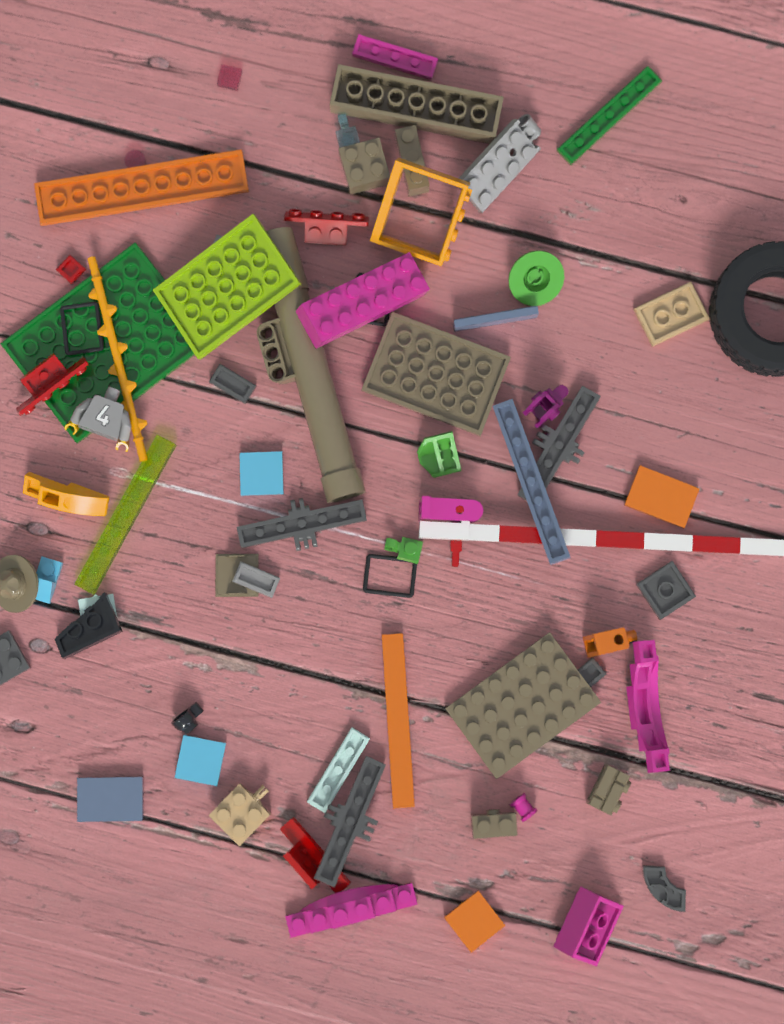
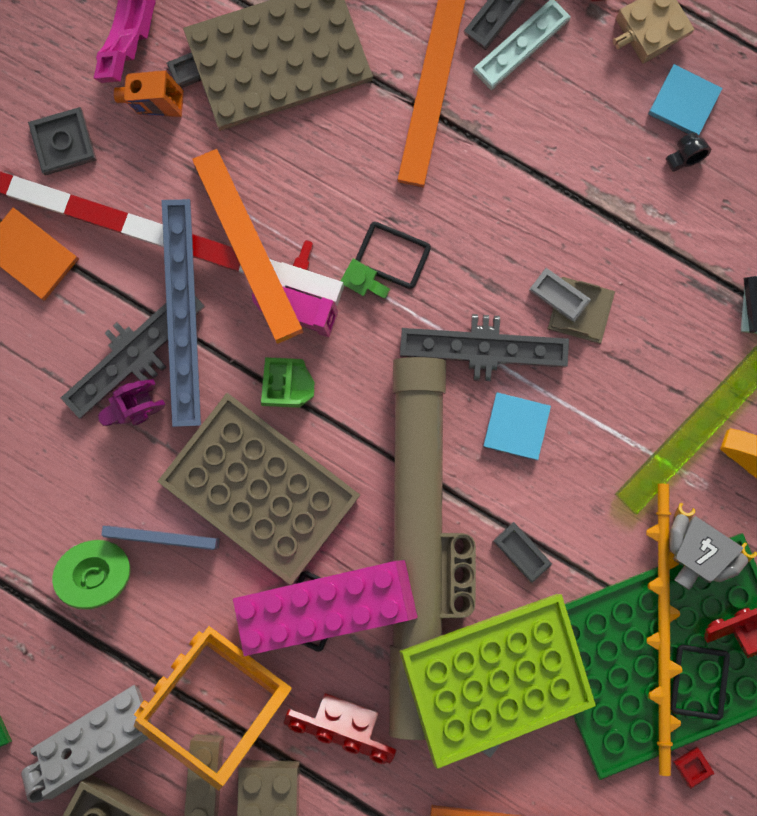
camera: 160 degrees left, 0 degrees up
(499, 545) = (247, 247): none -> orange tile

